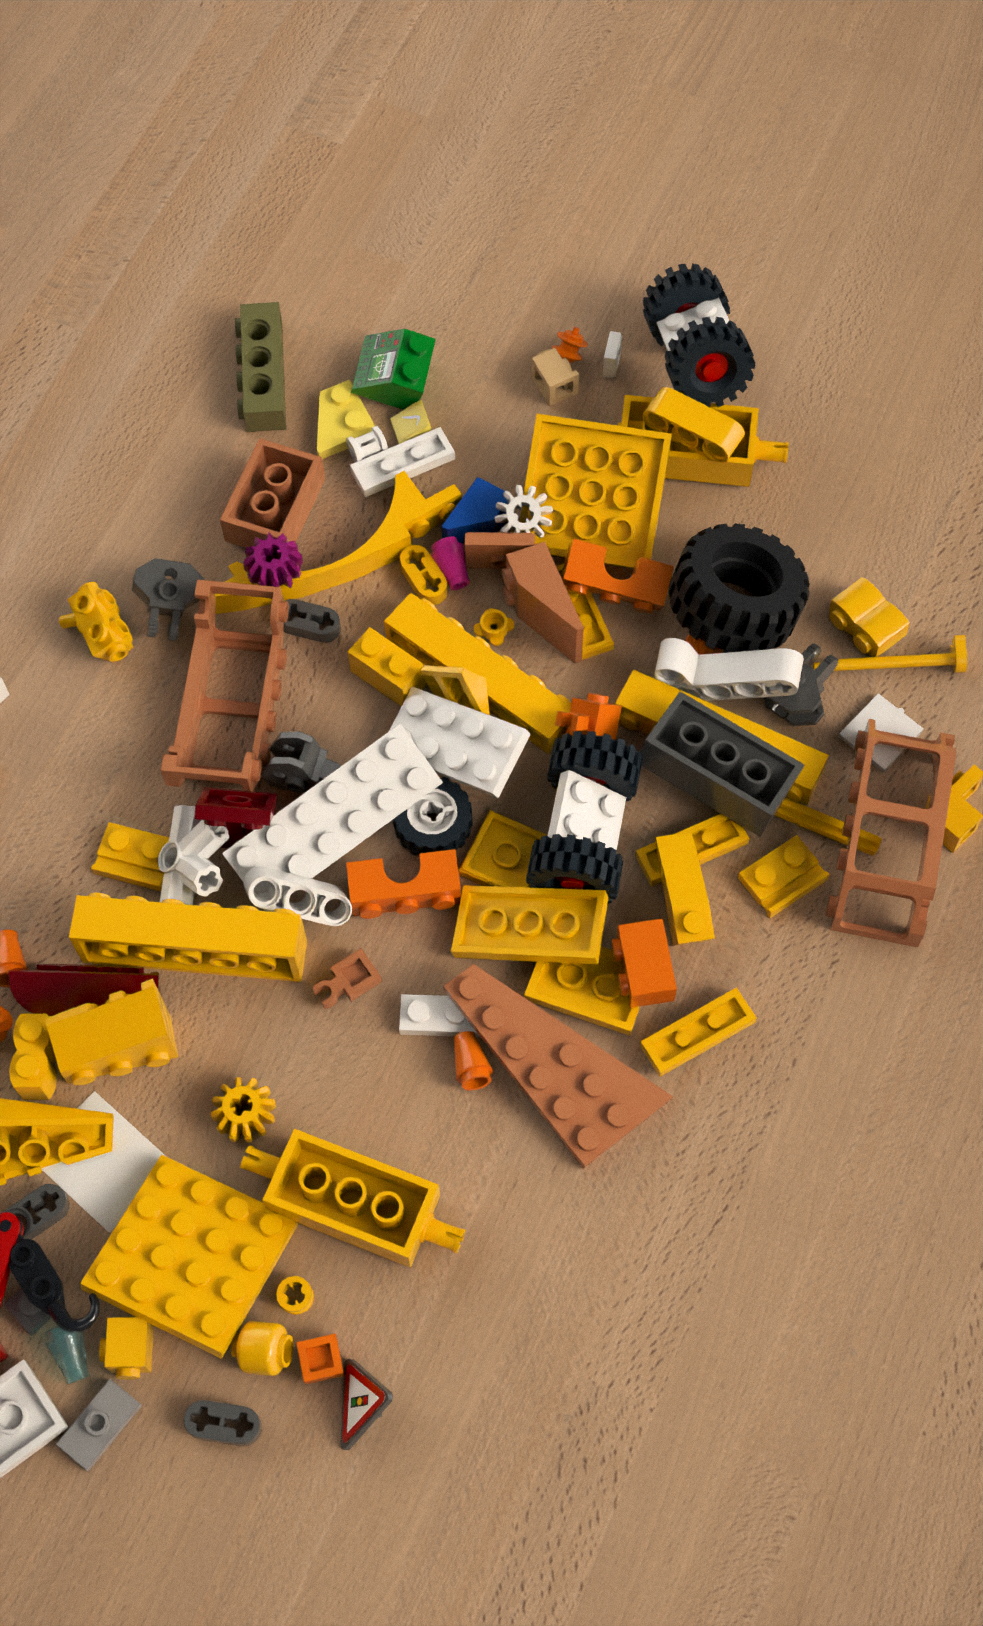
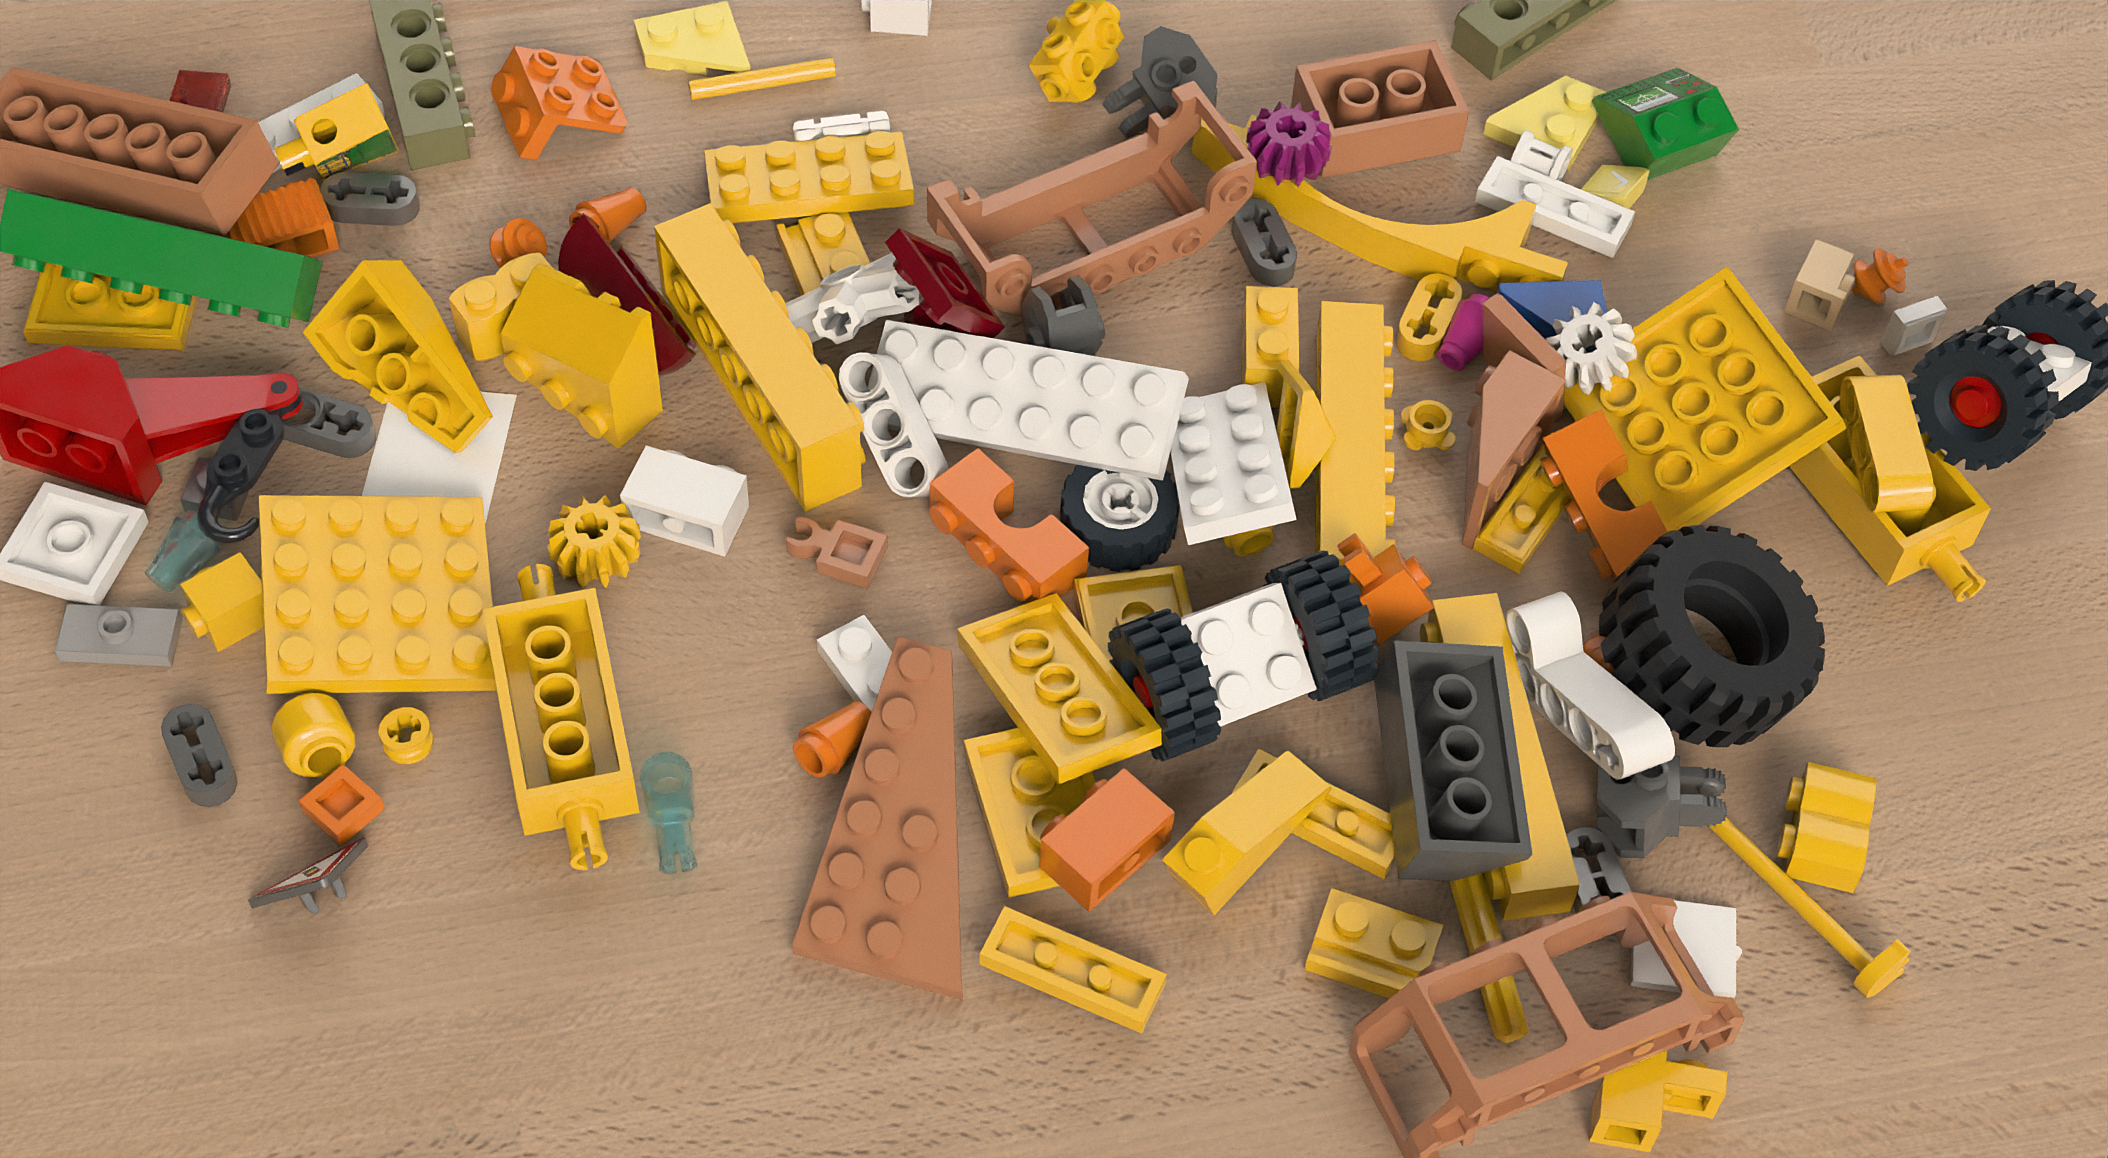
camera: 50 degrees right, 10 degrees down
(46, 787) = (841, 126): none -> white axle
(70, 829) = (809, 177): none -> yellow plate
(252, 1040) = (686, 499): none -> white brick
(459, 1178) = (671, 811): none -> clear light blue pin
(825, 741) = (1606, 872): none -> flat silver beam

